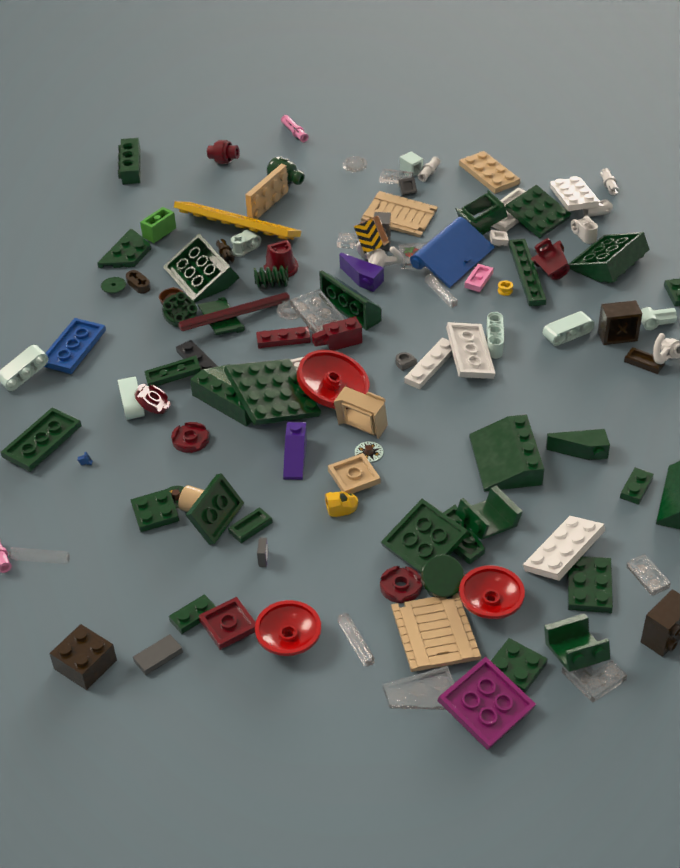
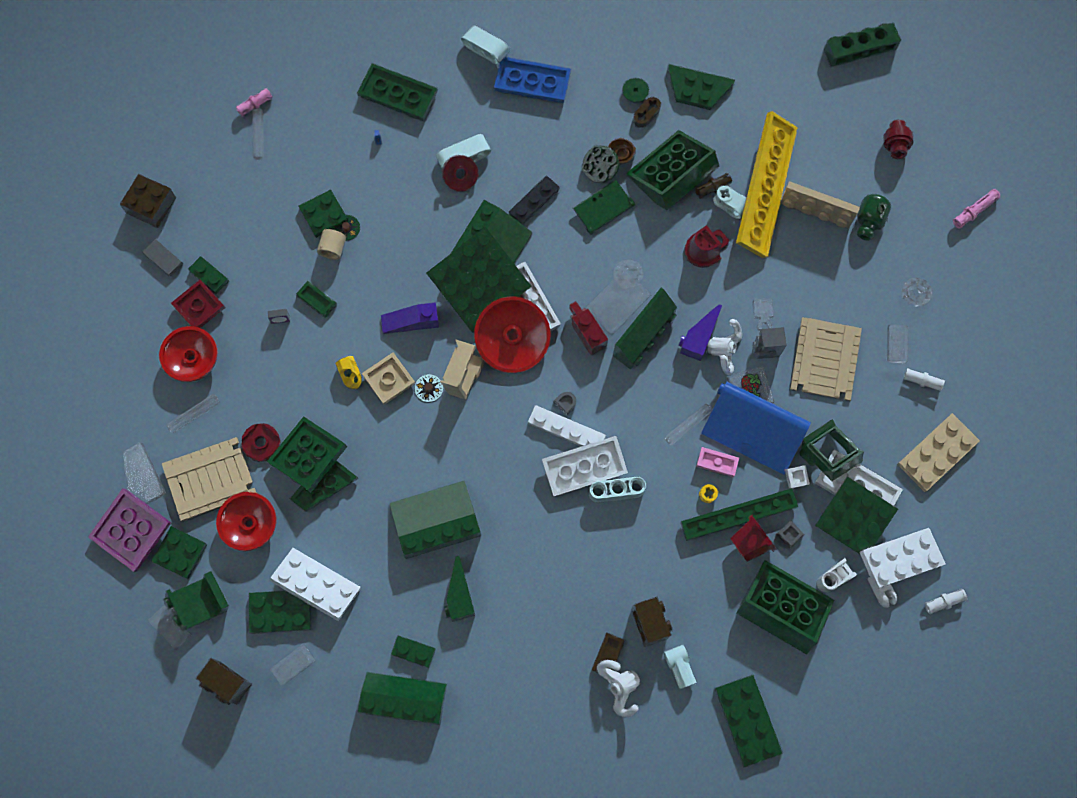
camera: 75 degrees right, 30 degrees up
(158, 225) = (738, 105): bright green brick -> none
(173, 371) = (504, 181): dark green plate -> none
(190, 437) = (422, 220): dark red tile -> none
(215, 509) = (318, 263): dark green plate -> none
(233, 311) = (608, 218): dark red axle -> none
(271, 277) = (670, 242): dark green piece -> none
(283, 337) = (582, 274): dark red plate -> none
(371, 234) = (749, 338): piece -> none
(407, 186) = (879, 359): dark grey tile -> none
(411, 163) = (927, 356): light aqua brick -> none
(442, 576) = (263, 475): dark green tile -> none
(490, 516) = (344, 508): dark green panel -> none
(568, 328) = (643, 568): light aqua beam -> none

